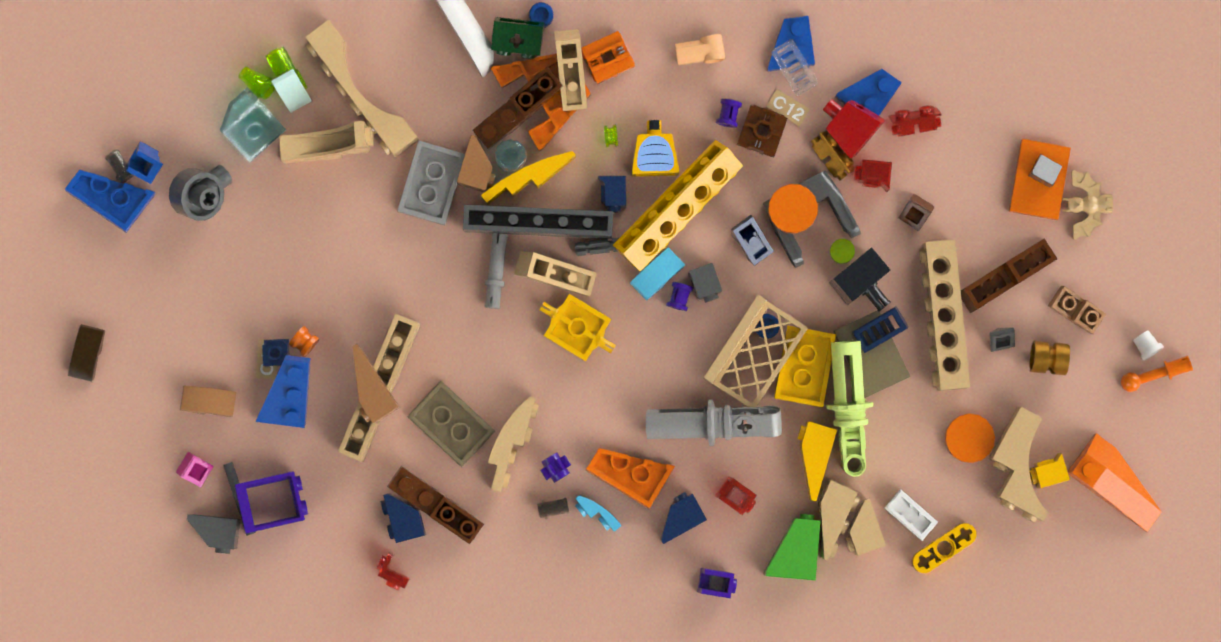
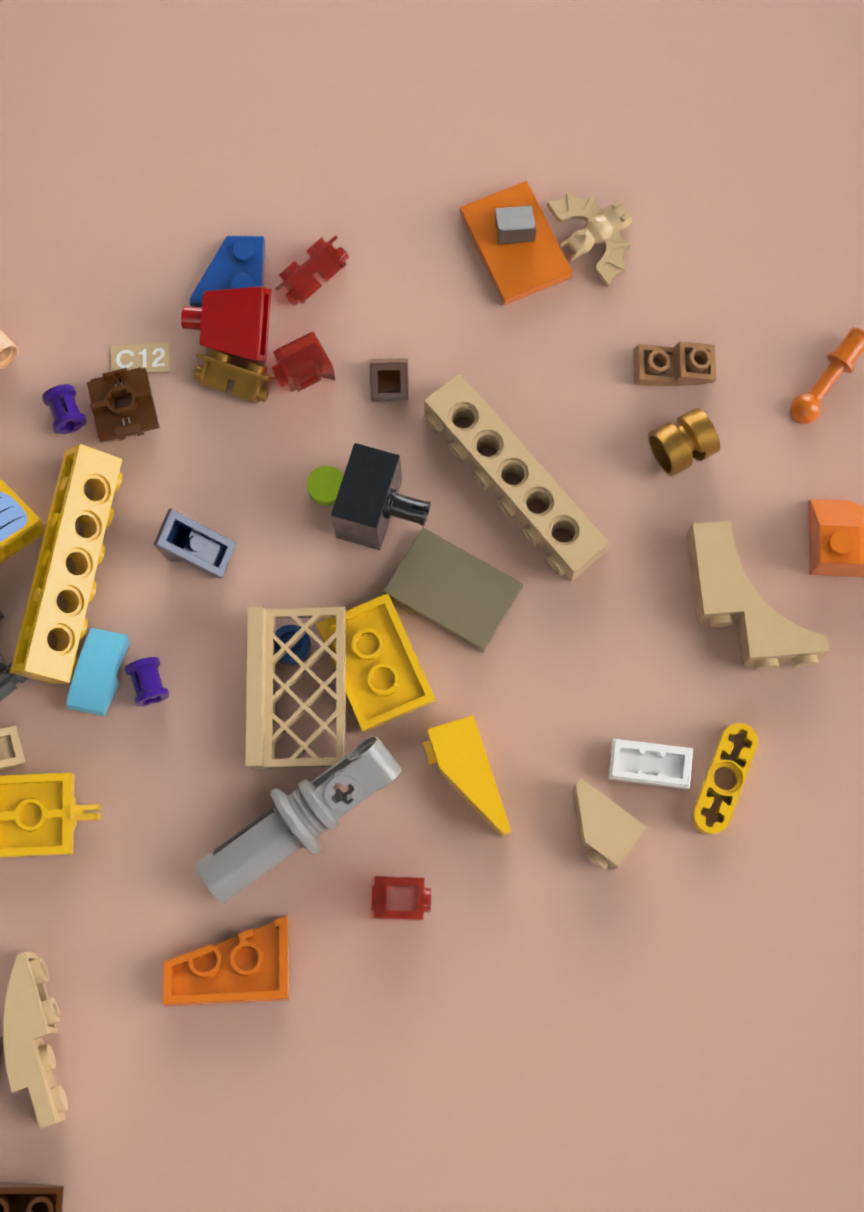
camera: 25 degrees left, 10 degrees down
(552, 508) = (151, 1093): clear smoke pin -> none
(555, 467) = (118, 1031): dark purple gear -> none
(591, 508) = (207, 1056): medium azure slope -> none
(682, 517) = (341, 980): dark blue slope -> none
(705, 282) = (169, 640): dark grey brick -> none
(716, 583) = (452, 1041): dark purple window -> none
(793, 208) = (221, 467): orange tile -> none
(797, 551) = (532, 918): bright green slope -> none
(798, 30) = (97, 281): blue wing -> none
(806, 84) = (142, 308): clear slope -> none
(822, 188) = (228, 453): dark grey connector -> none
(833, 511) = (543, 827): tan slope -> none
(849, 415) = (478, 686): yellowish green piece -> none
(884, 337) = (435, 528): dark blue slope -> none
(969, 438) = (655, 612): orange tile -> none
(1002, 339) = (607, 460): dark grey slope -> none
(1007, 275) = (557, 380): reddish brown slope -> none
(1049, 472) = (790, 583): yellow window -> none
(1147, 345) = (793, 348): white piece -> none

